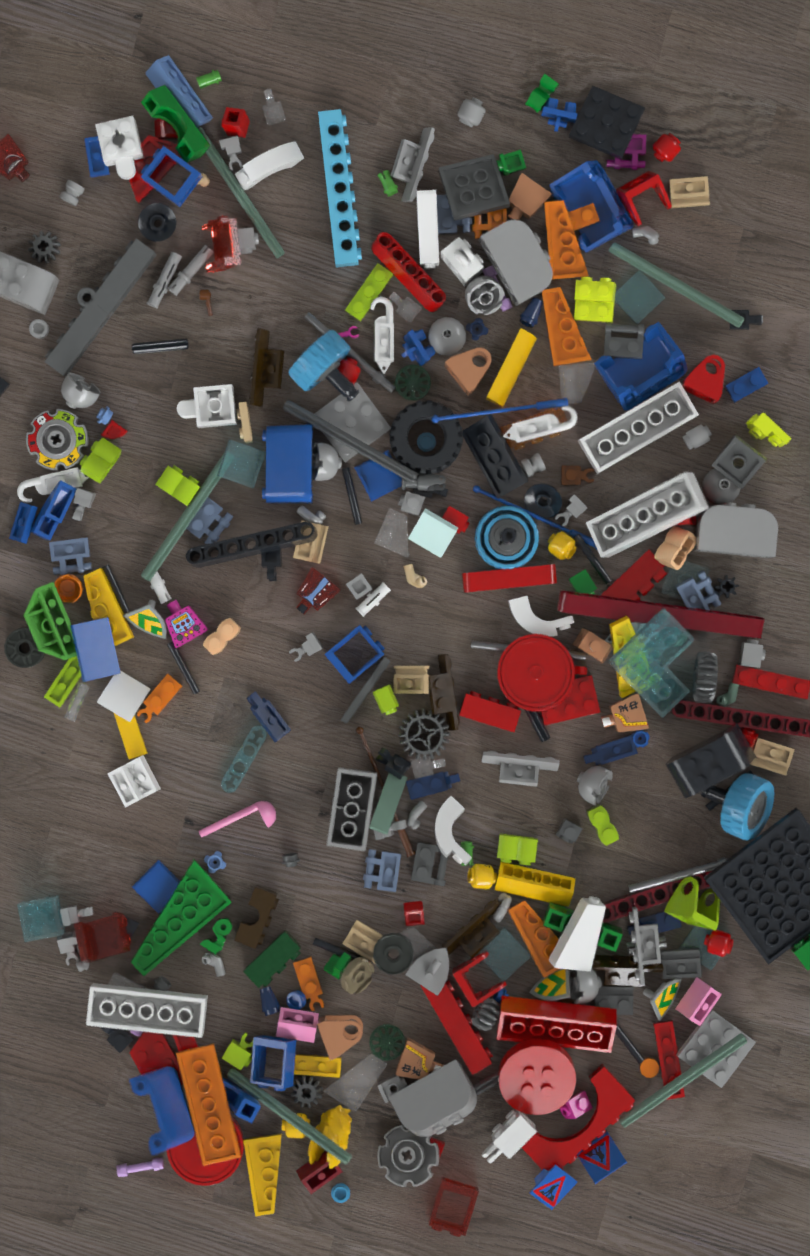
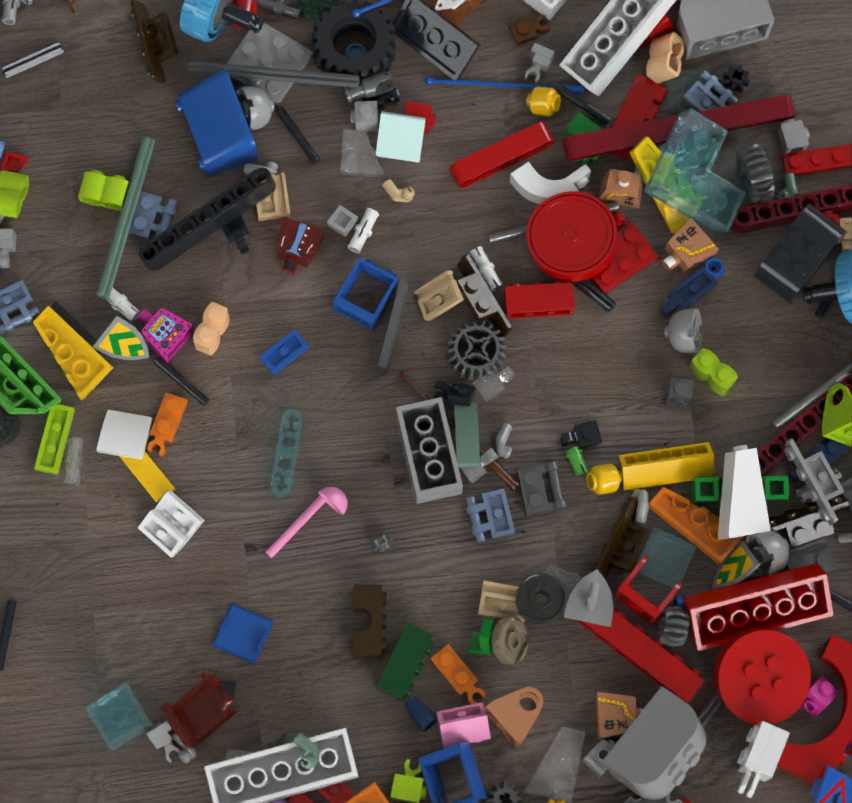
camera: 25 degrees left, 15 degrees down
(69, 588) = (21, 339): orange hair -> none
(71, 914) = (153, 701): light grey piece -> none
(95, 649) = (74, 390): tile -> none
(171, 1007) = (309, 751): none -> sand green arm
(187, 911) = (286, 644): green wing -> none
(211, 406) = (104, 88): white brick -> none
(213, 867) = (297, 573): medium blue plate -> none
(215, 961) = (340, 691): light grey arm -> none
(221, 928) = (333, 651): green leg -> none
(241, 464) = (164, 143): clear light blue tile -> none
(243, 415) = (149, 94): tan plate -> none
(268, 717) = (296, 396): dark blue hinge -> none
(272, 677) = (284, 352): none -> blue plate
(296, 1000) = (450, 698): blue tile -> none
(311, 646) = (314, 304): light grey piece -> none
(317, 1066) = (504, 766): yellow plate -> none
(334, 949) = (464, 625): black bar -> none
(377, 479) = (319, 106): blue piece -> none
(386, 699) = (419, 325): lime brick -> none
(387, 1042) = (574, 707): clear green wheel -> none
(414, 913) = (545, 551): red slope -> none
(431, 784) = (506, 402): dark blue hinge -> none
(444, 821) = (542, 445): white arch -> none
(458, 669) = (486, 269): none -> white pin
(482, 834) = (584, 434): none -> black plate
(506, 537) = (481, 112): dark azure wheel -> none
(517, 848) = (630, 434): lime brick -> none
(519, 769) = (595, 346): light grey bracket -> none
(537, 463) = (480, 31): light grey wheel -> none
(540, 506) = (506, 74): black dish -> none

